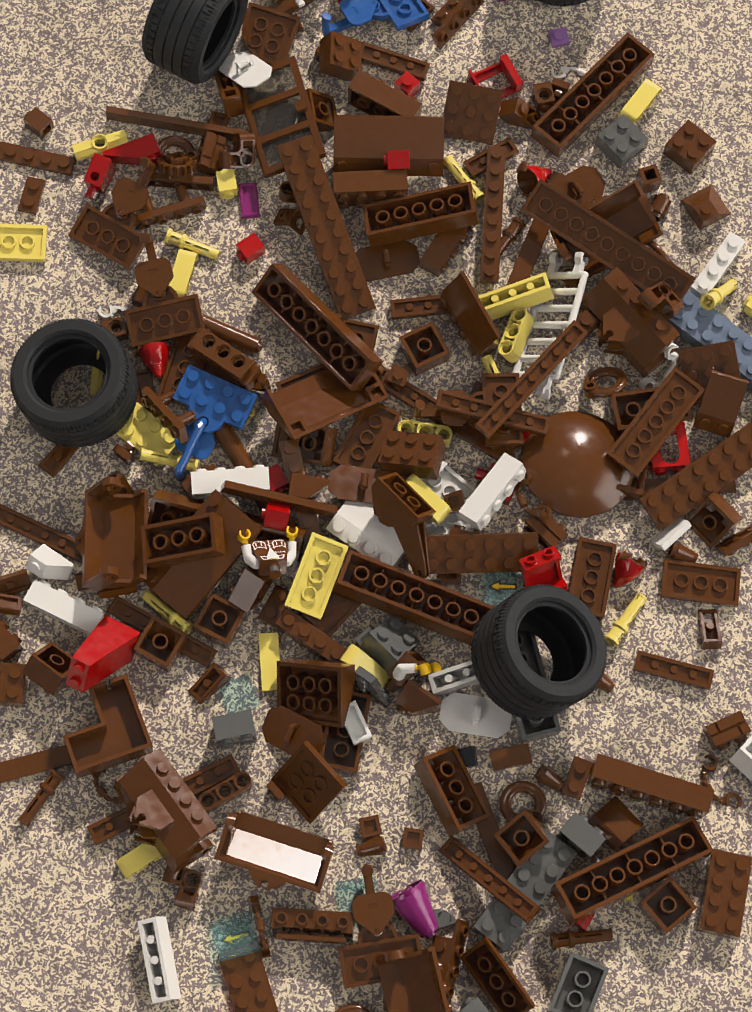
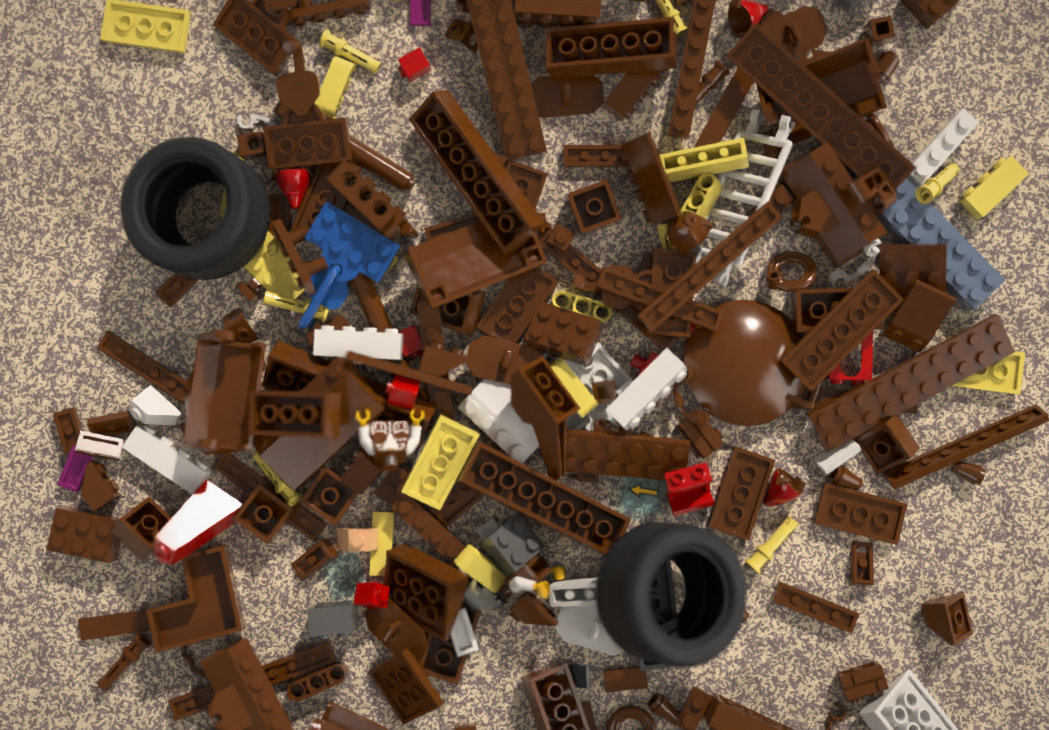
camera: 15 degrees right, 15 degrees up
(246, 657) = (357, 538): none -> light nougat slope
(267, 704) = (371, 595): none -> red brick
(275, 791) = (370, 687): reddish brown tile -> none
(509, 354) = (688, 231): none -> reddish brown helmet
(705, 207) = (937, 71): reddish brown slope -> none

